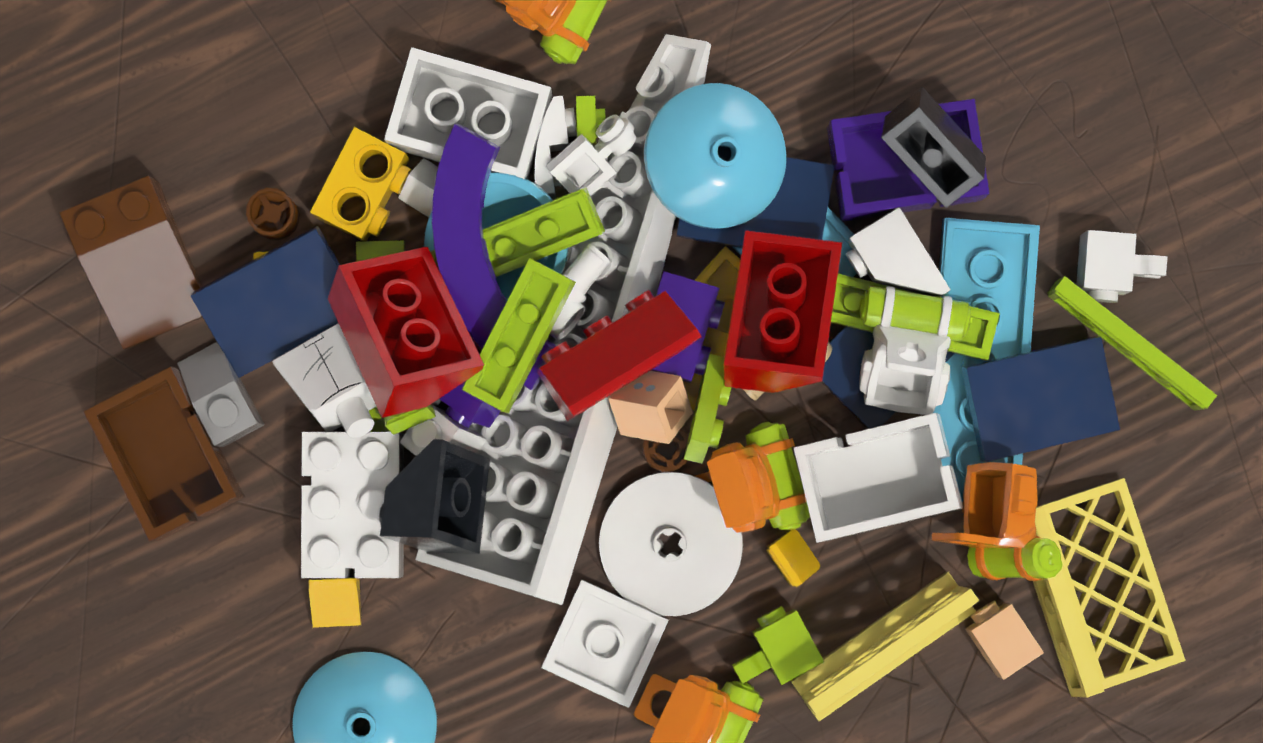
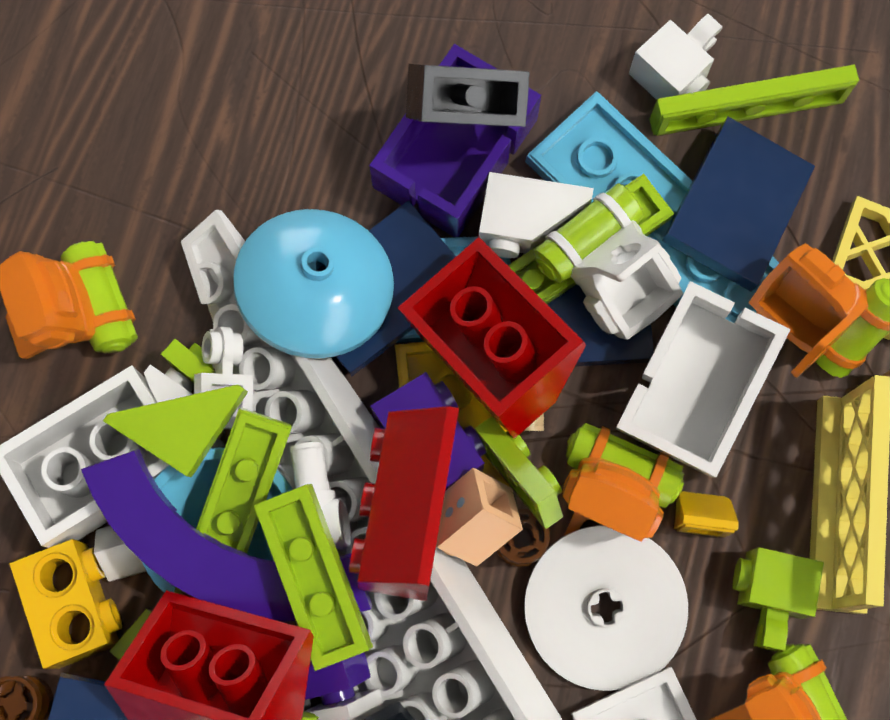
camera: 45 degrees left, 10 degrees down
(537, 161) = (180, 428): none -> lime tile

